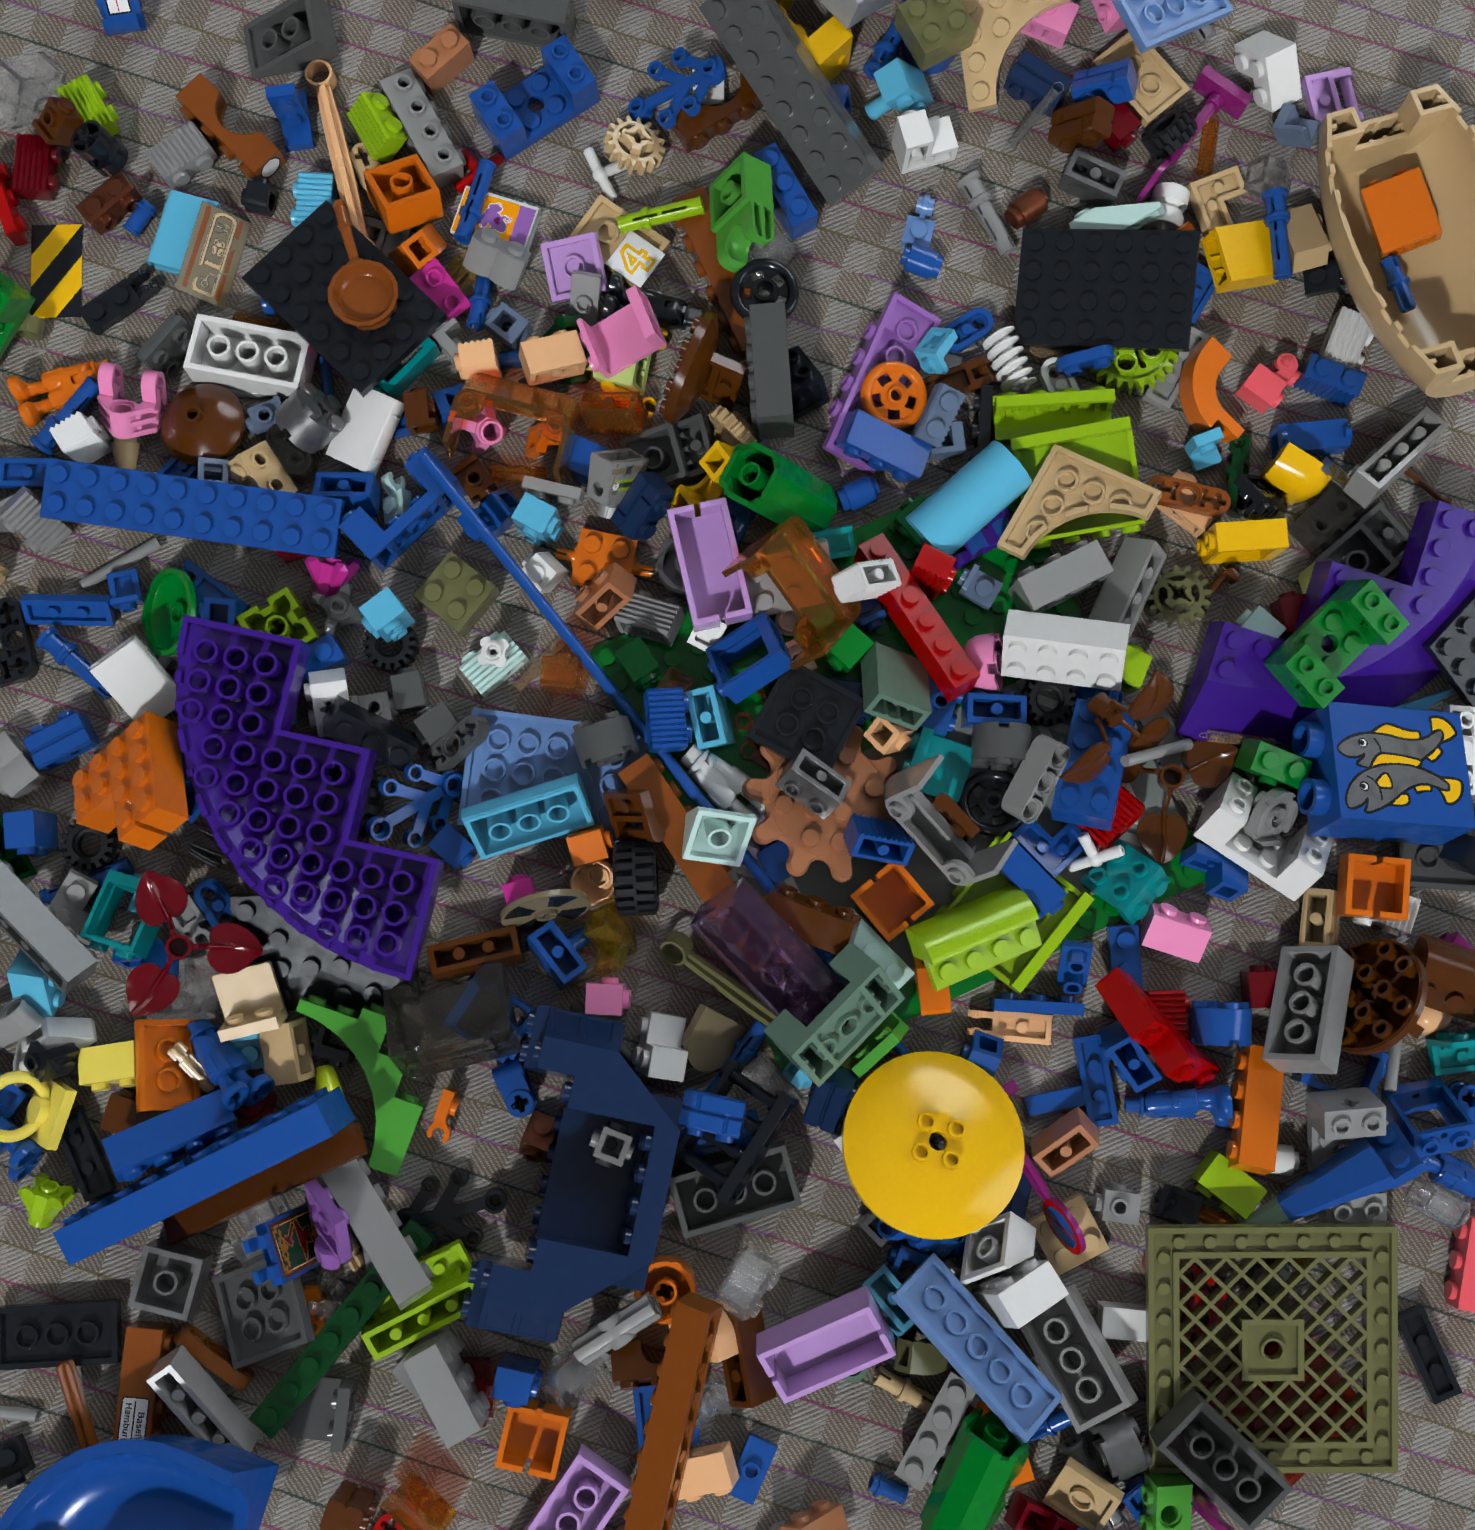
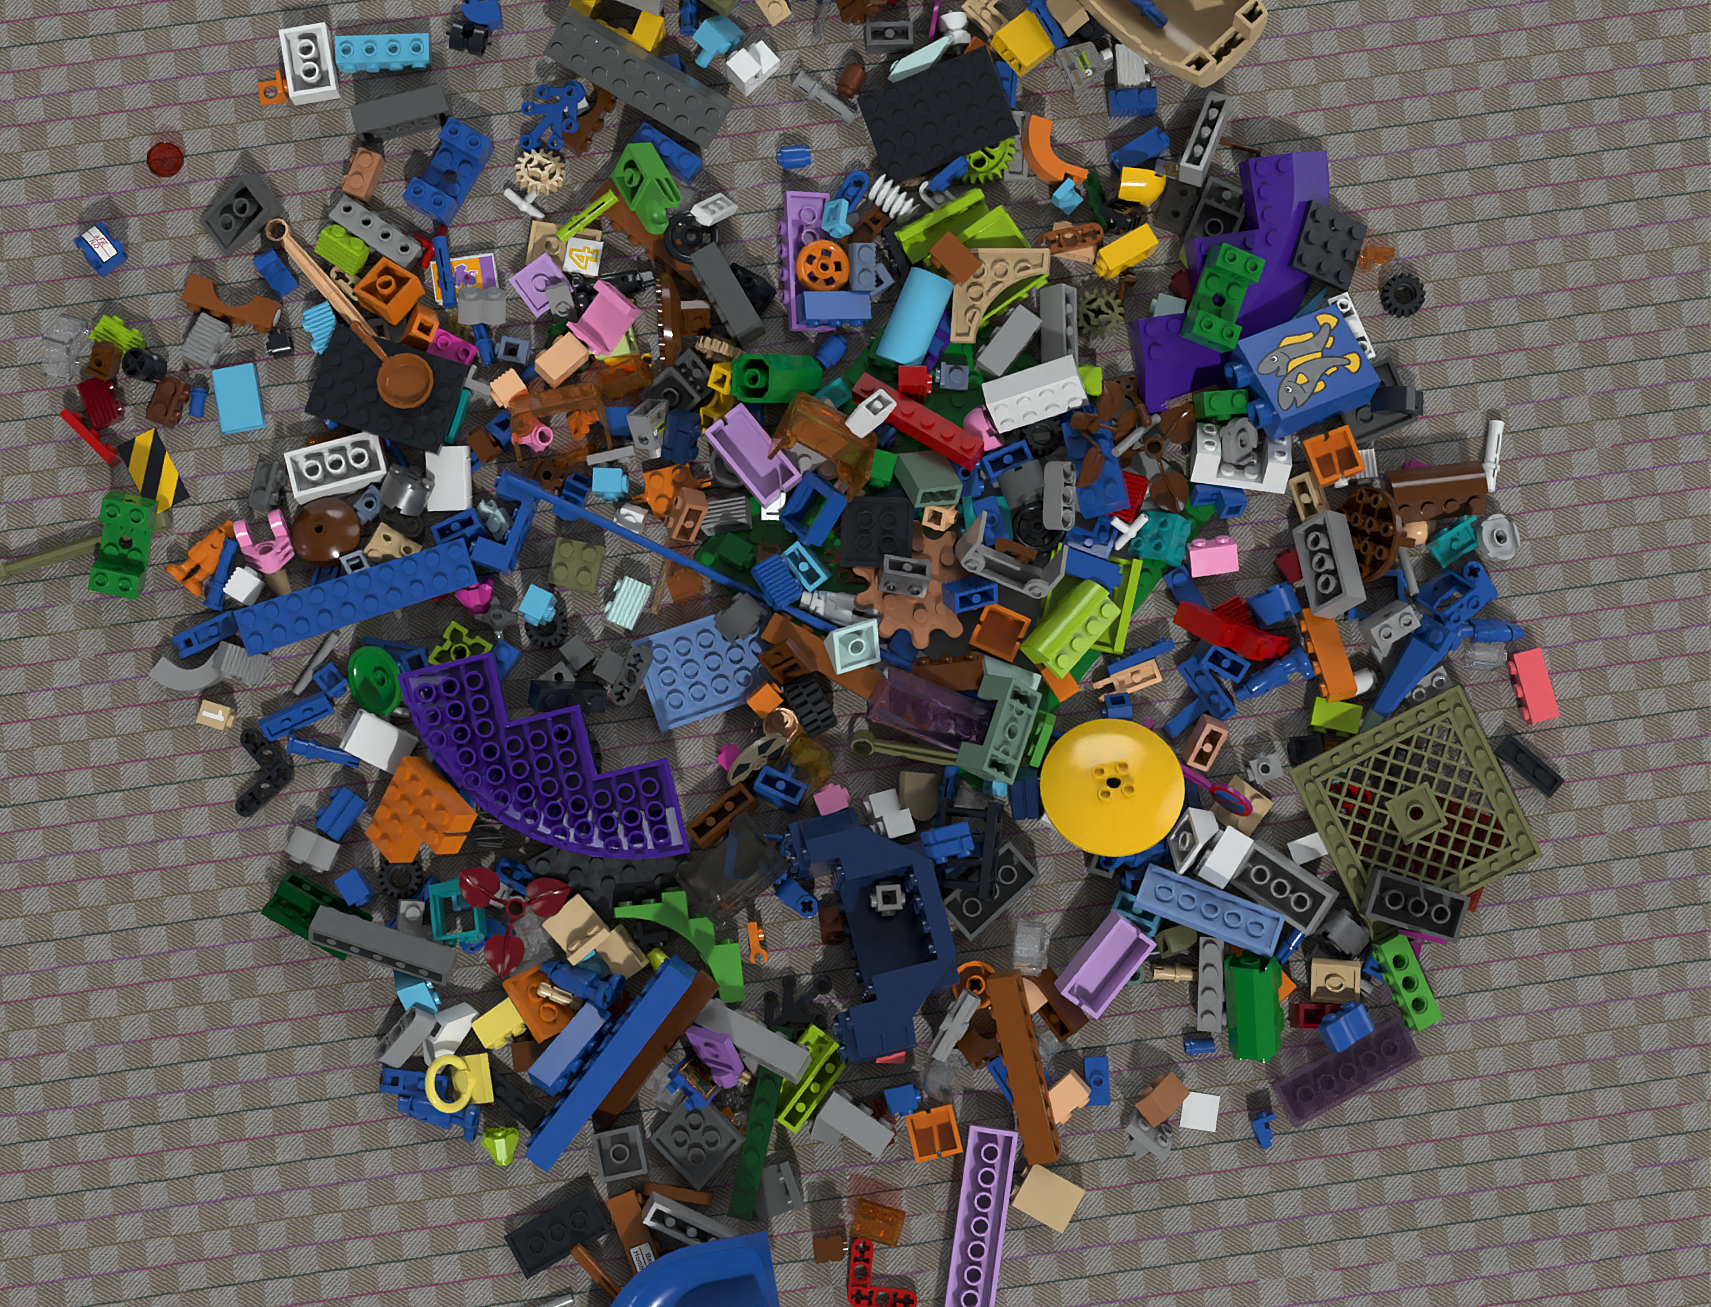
camera: 30 degrees left, 0 degrees up
(50, 1063) = (456, 1042): black bracket -> none
(118, 301) = (213, 473): black hinge -> none
(213, 255) = (268, 404): sticker -> none
(324, 687) = (515, 681): white brick -> none
(419, 804) = (627, 730): blue plant -> none
(453, 847) = (668, 748): blue brick -> none
(499, 658) = (629, 588): white plate -> none
(528, 816) = (711, 699): medium azure brick -> none
(803, 273) = (713, 209): none -> white plate
(919, 229) = (778, 134): medium blue plate -> none
(945, 776) = (994, 523): none -> blue plate
(1047, 452) = (953, 259): none -> dark orange brick
(1074, 966) = (1152, 615): blue hips -> none
(1176, 722) = (1131, 393): none -> reddish brown piece
(1265, 386) = (1088, 131): coral brick -> none
(1292, 313) = (1082, 65): none -> light grey torso

